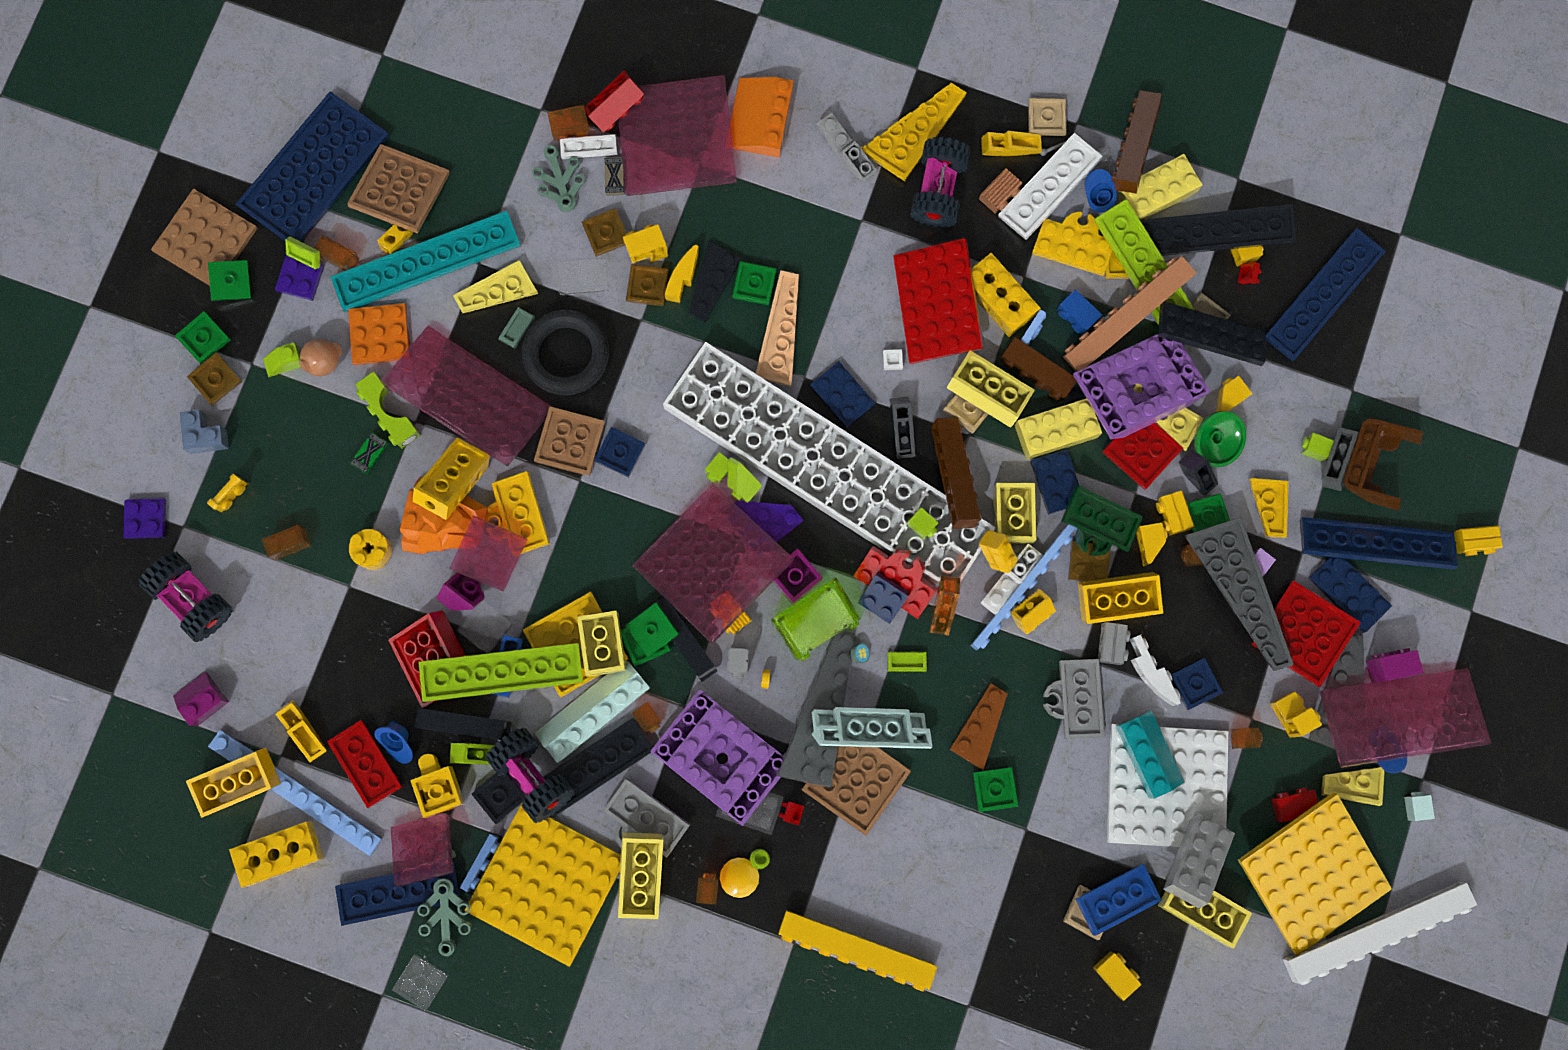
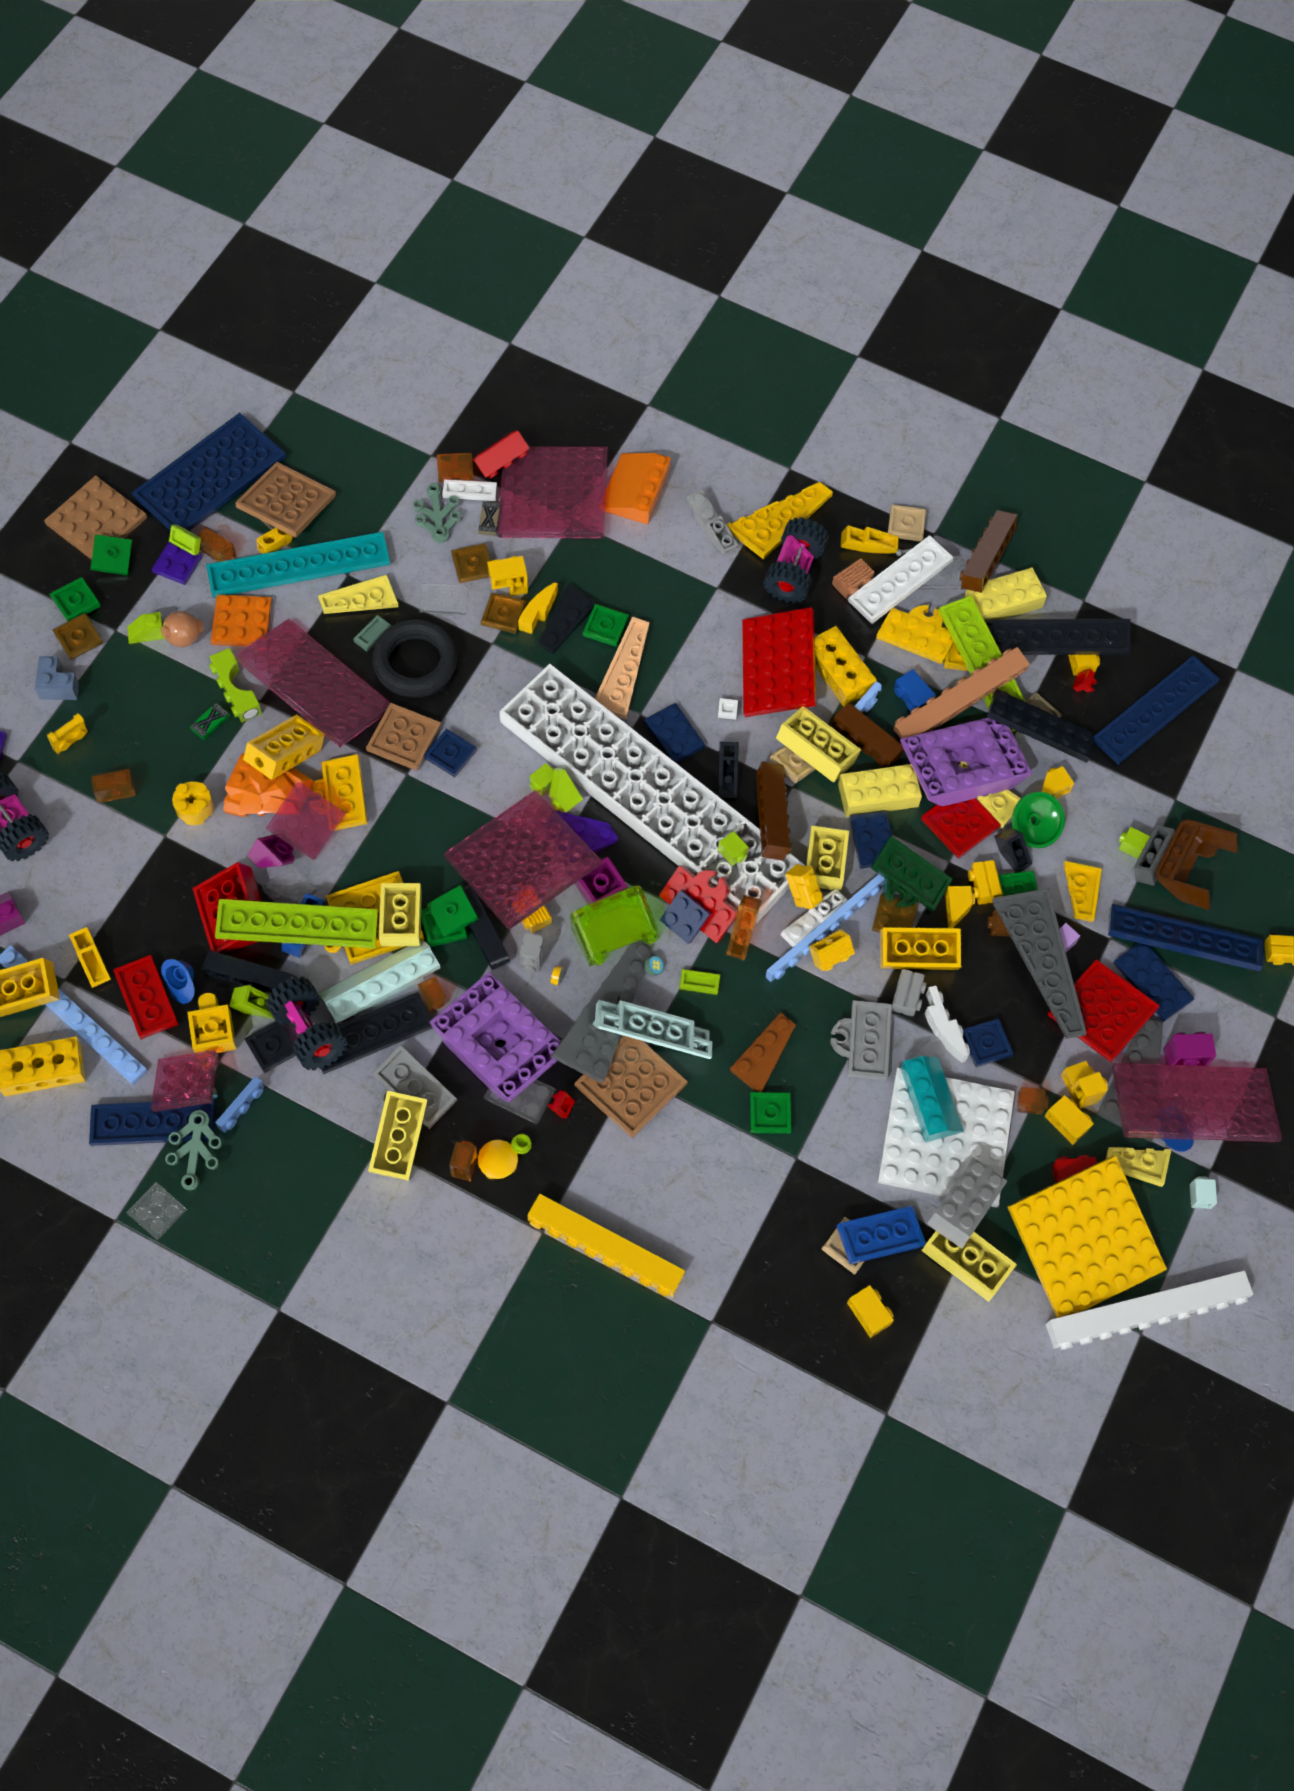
camera: 10 degrees right, 15 degrees down
(545, 885) = (301, 1138): yellow plate -> none
(1100, 190) = (948, 588): blue piece -> none
(1284, 751) = (1069, 1119): none -> yellow brick

